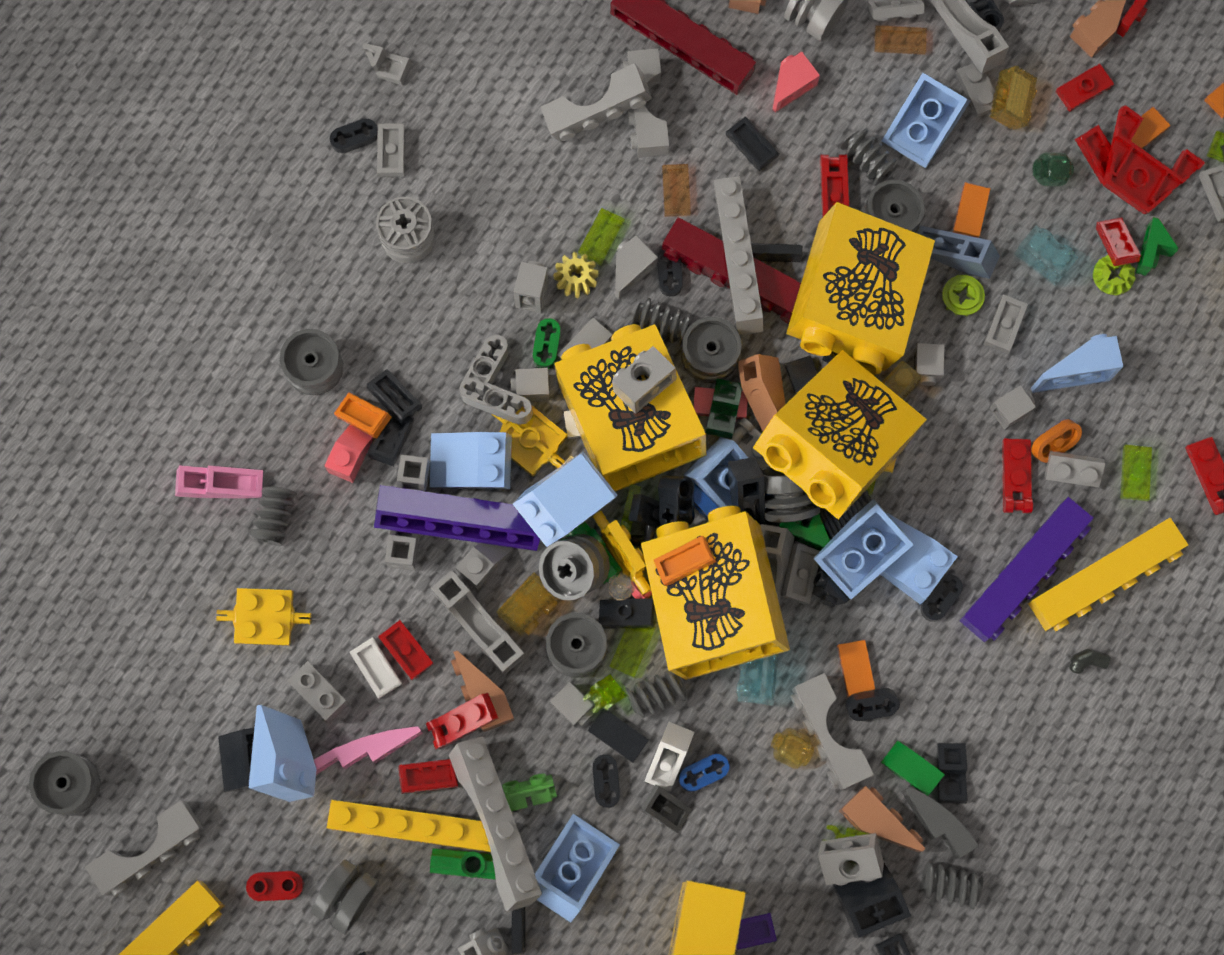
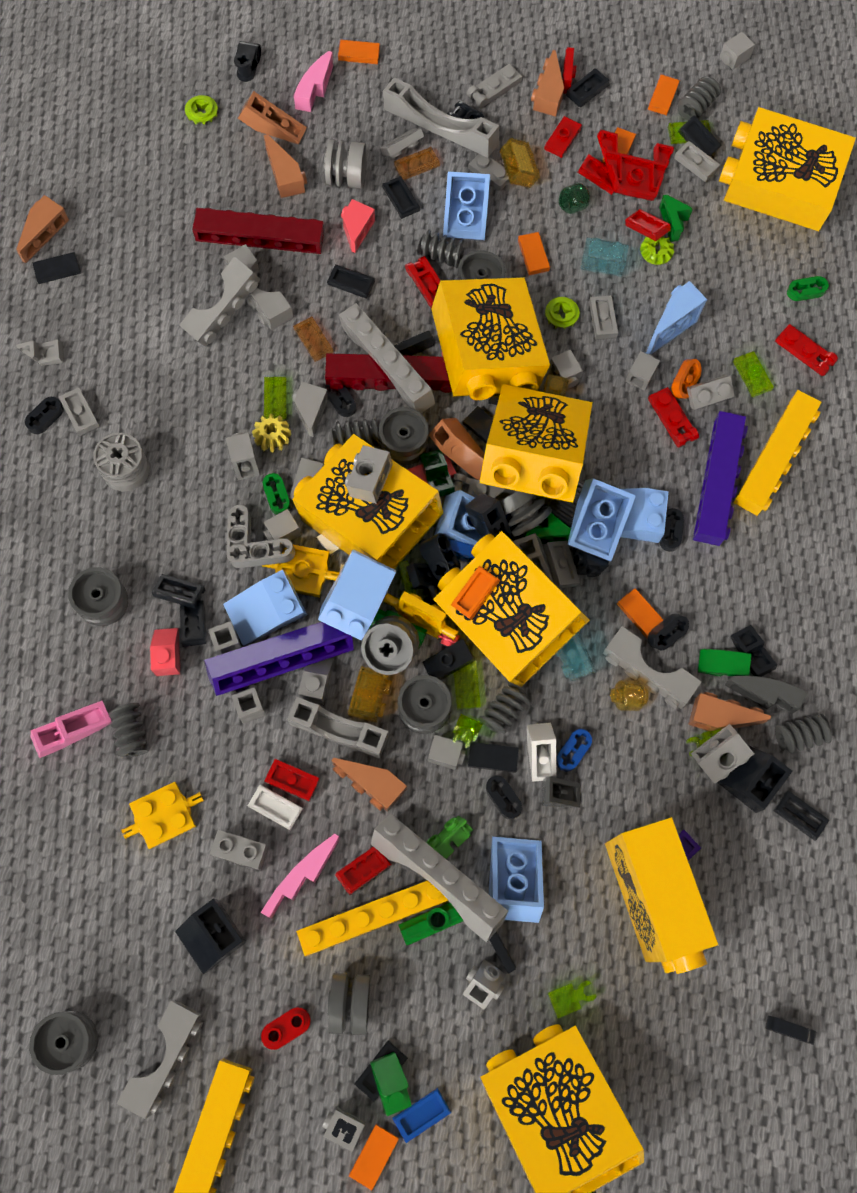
camera: 30 degrees left, 5 degrees down
(281, 757) = (237, 918): light blue slope -> none
(362, 415) = (161, 617): orange tile -> none
(462, 720) = (367, 810): plate -> none
(618, 592) = (433, 647): clear plate -> none
(860, 71) = (401, 197): none -> black tile
(962, 252) = (549, 281): sand blue slope -> none
(1086, 658) = (798, 518): pearl dark grey arm -> none
(1147, 41) = (587, 87): none -> black plate

